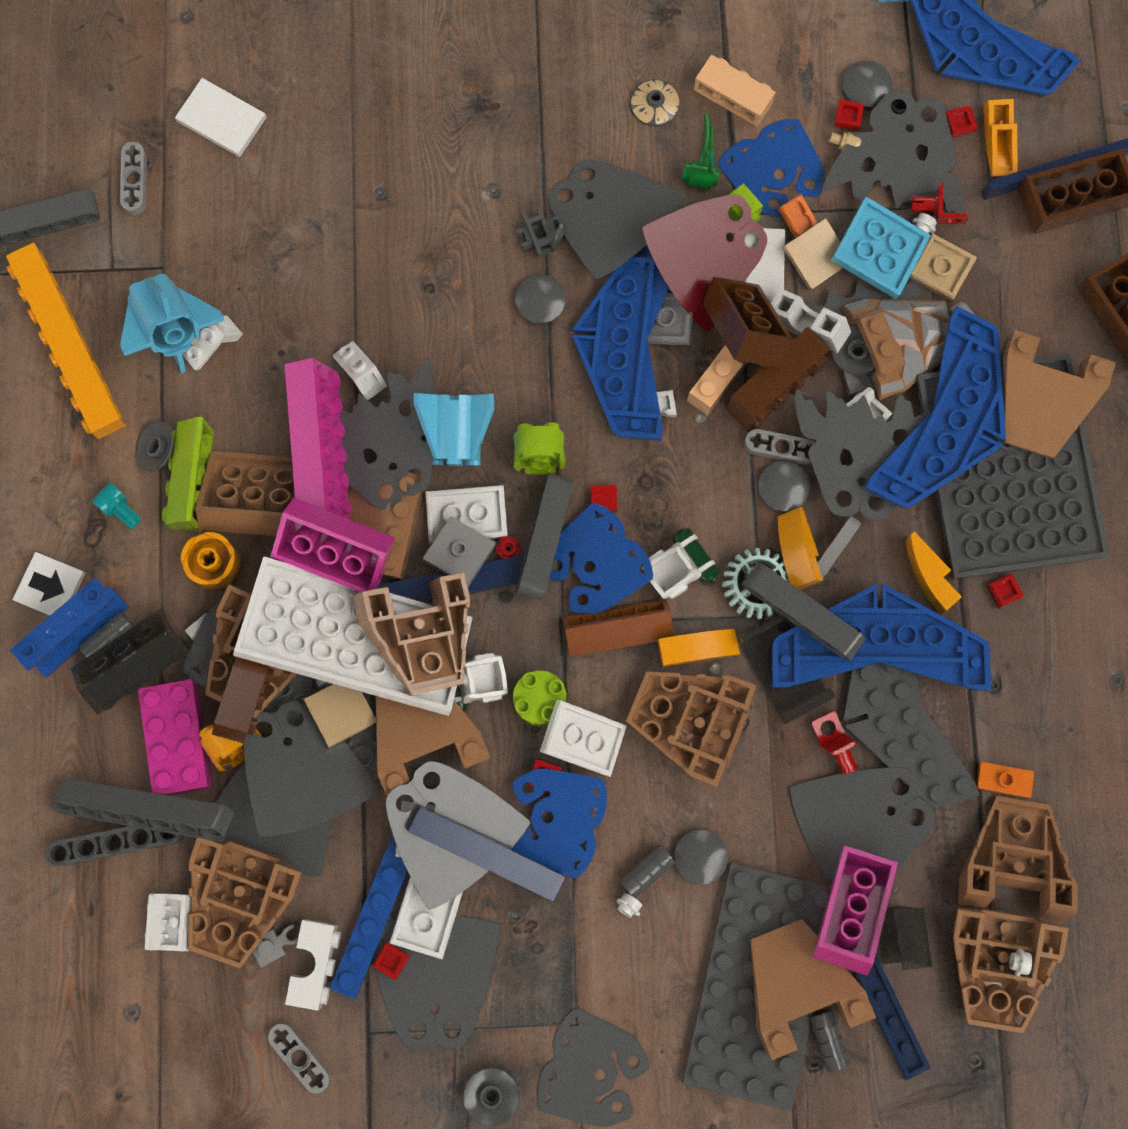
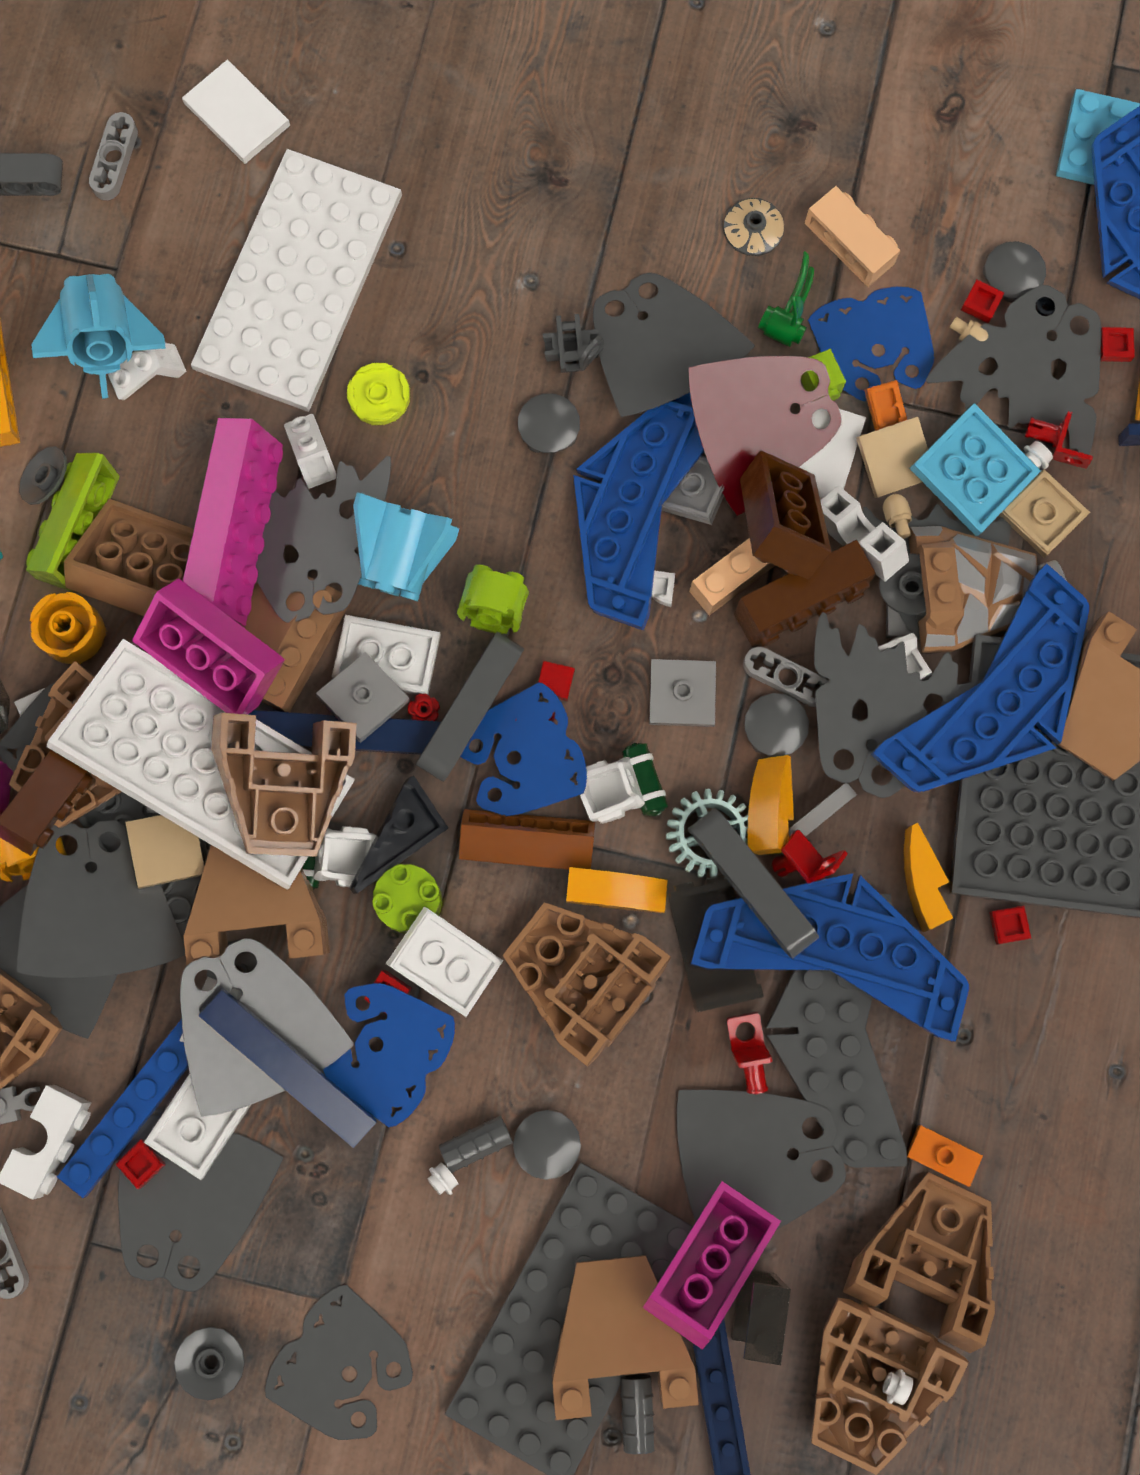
camera: 15 degrees right, 0 degrees up
(309, 238) = (297, 280): none -> white plate
(399, 311) = (378, 394): none -> neon yellow tile
(522, 646) = (405, 830): none -> black wing
(704, 481) = (682, 692): none -> light grey plate
(831, 298) = (898, 514): none -> tan cylinder
(835, 582) = (803, 857): none -> red bracket

